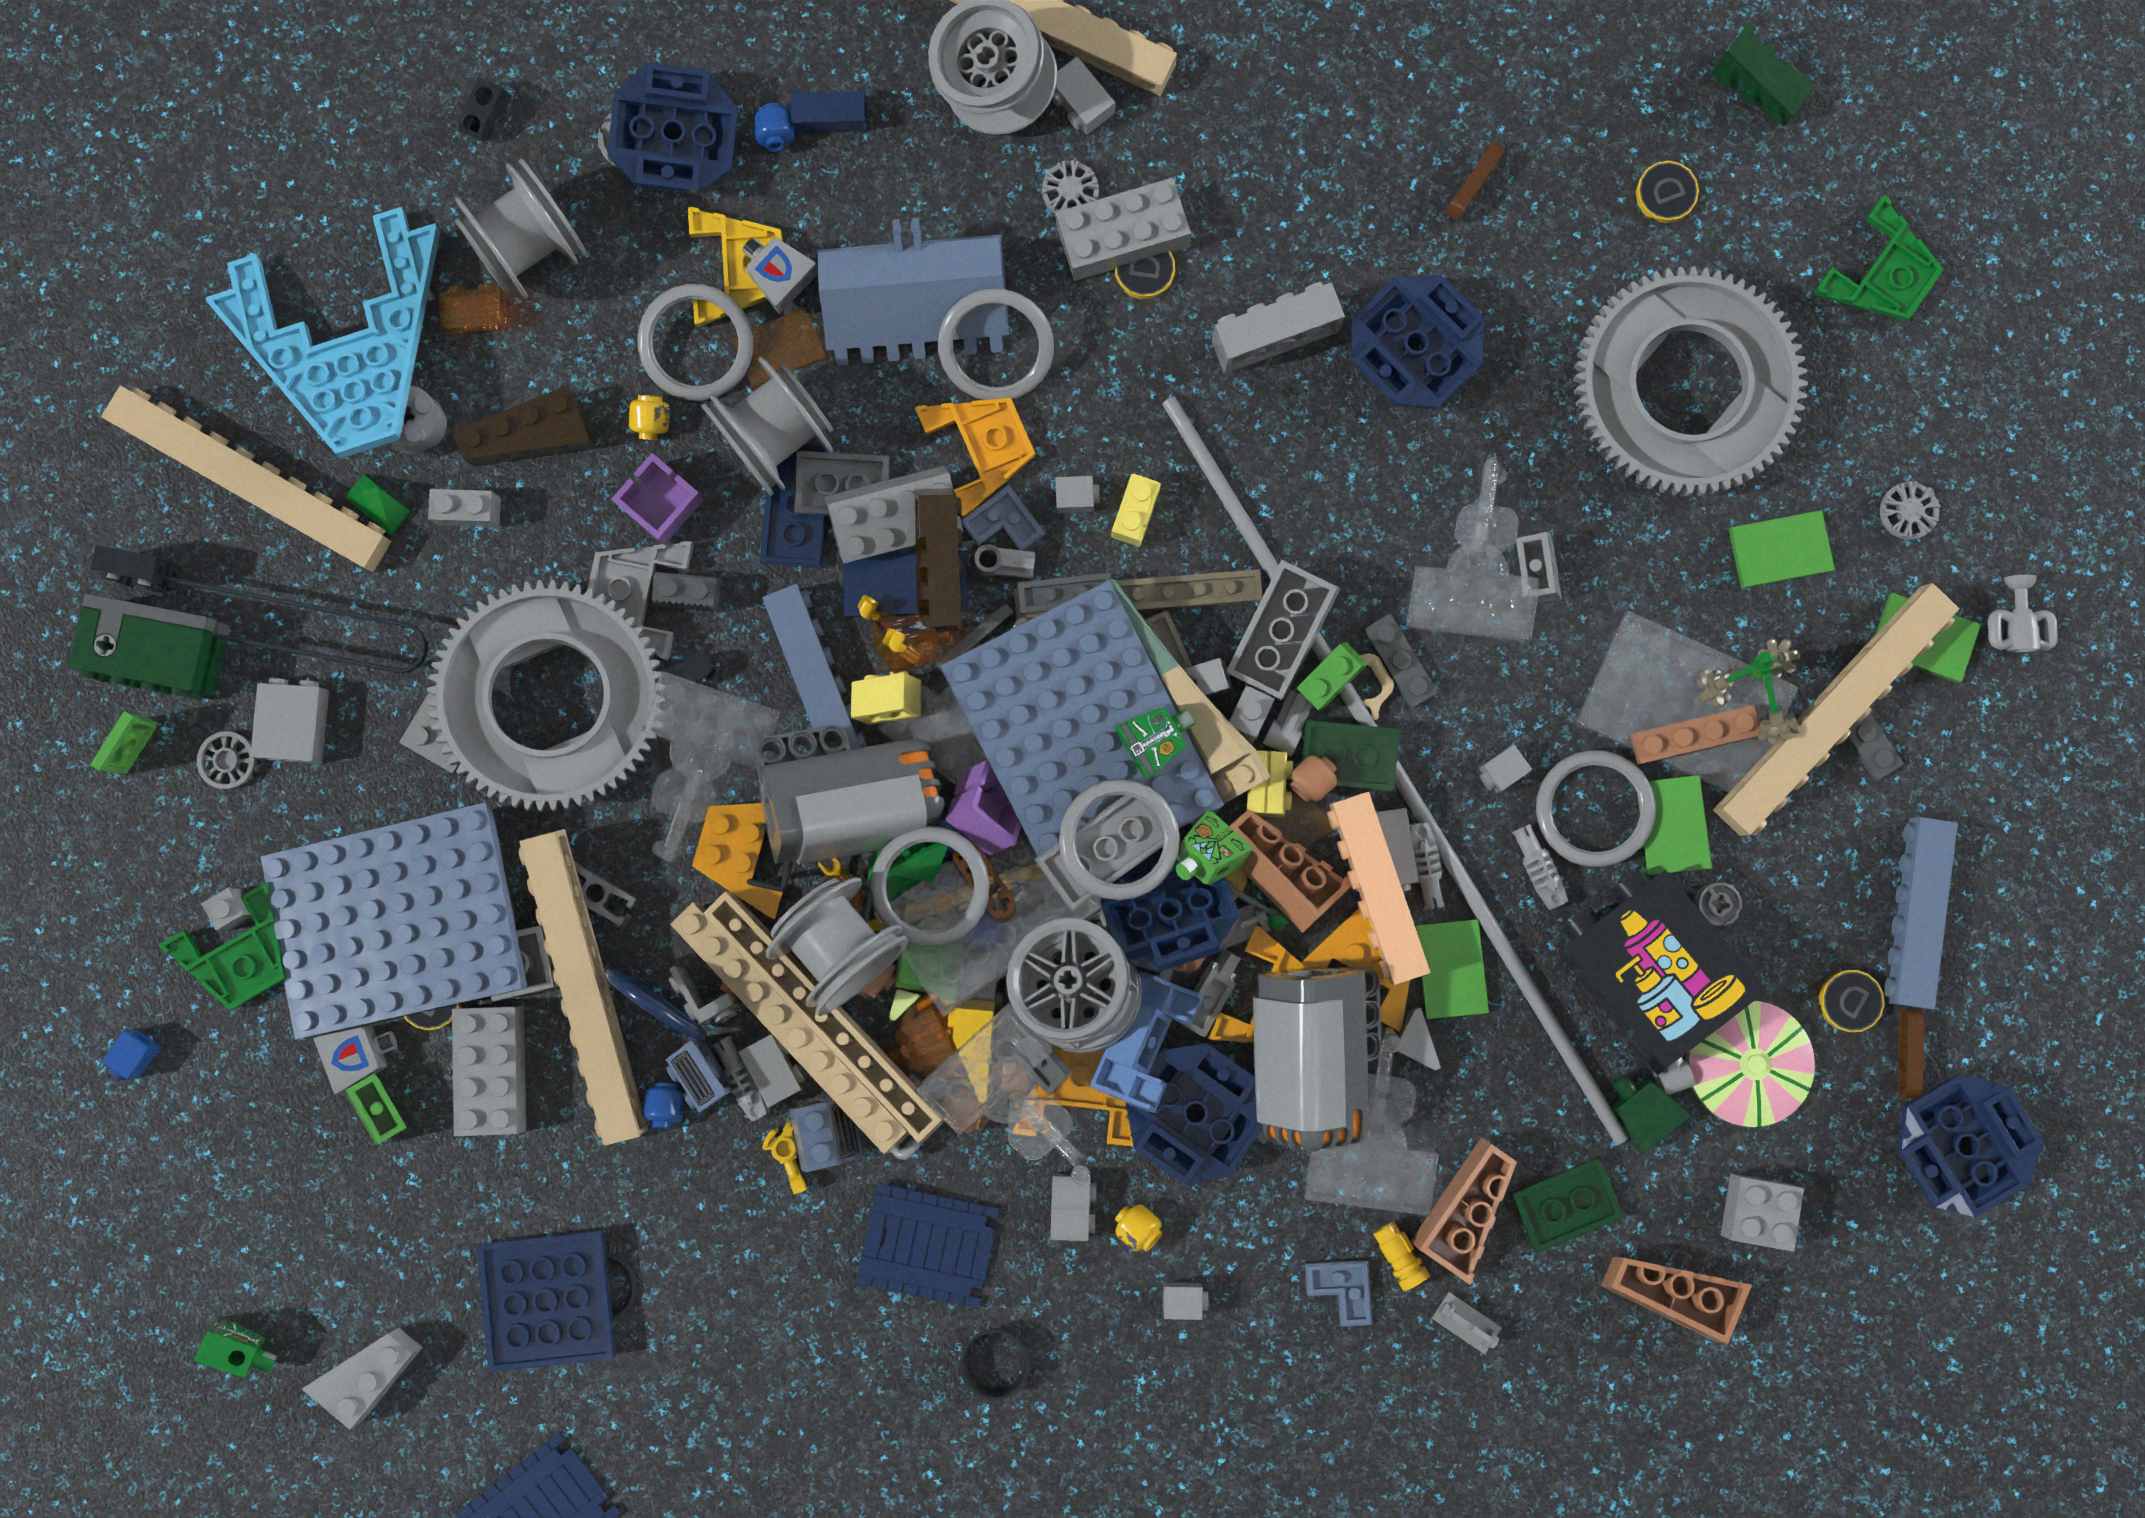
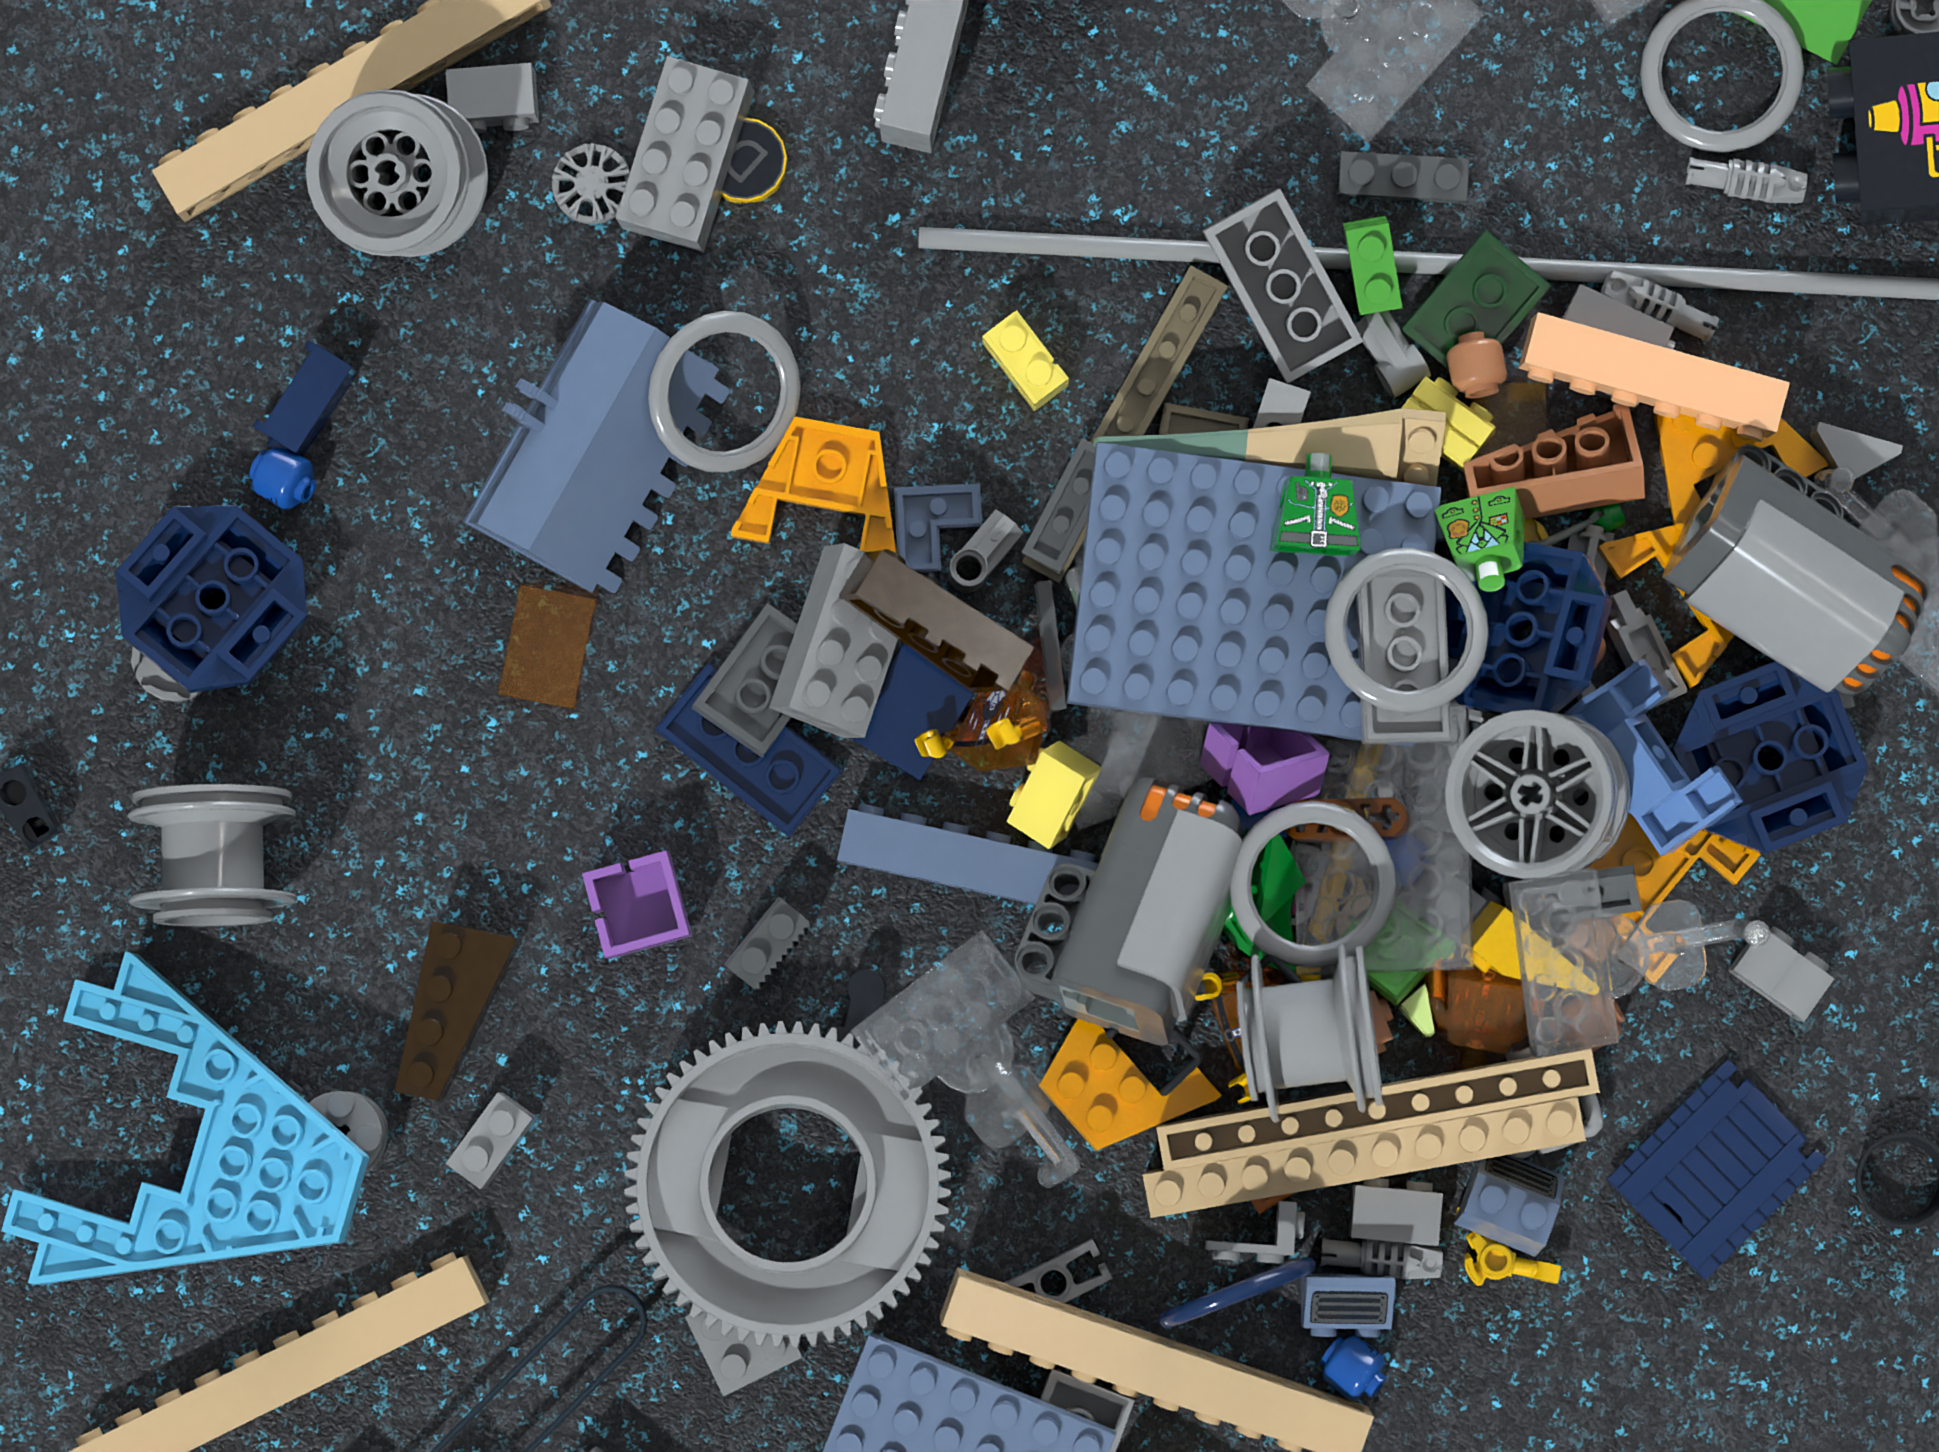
camera: 55 degrees left, 0 degrees up
(378, 504) = (413, 1242): green slope -> none
(473, 309) = (258, 975): clear orange brick -> none
(628, 580) = (705, 1005): light grey wing -> none
(649, 416) = (529, 851): yellow head -> none
(730, 307) = (409, 731): light grey wedge -> none
(736, 279) = (426, 613): yellow wing -> none
(770, 424) = (646, 712): light grey wheel -> none
(778, 271) = (463, 585): light grey torso -> none
(1076, 494) = (959, 417): light grey brick -> none
(1138, 1228) = (1856, 912): yellow head -> none
(1251, 712) = (1350, 385): light grey torso -> none
(1385, 681) = (1416, 210): tan helmet -> none
(1456, 969) = (1802, 351): bright green tile -> none
(1504, 769) = (1608, 144): light grey brick -> none

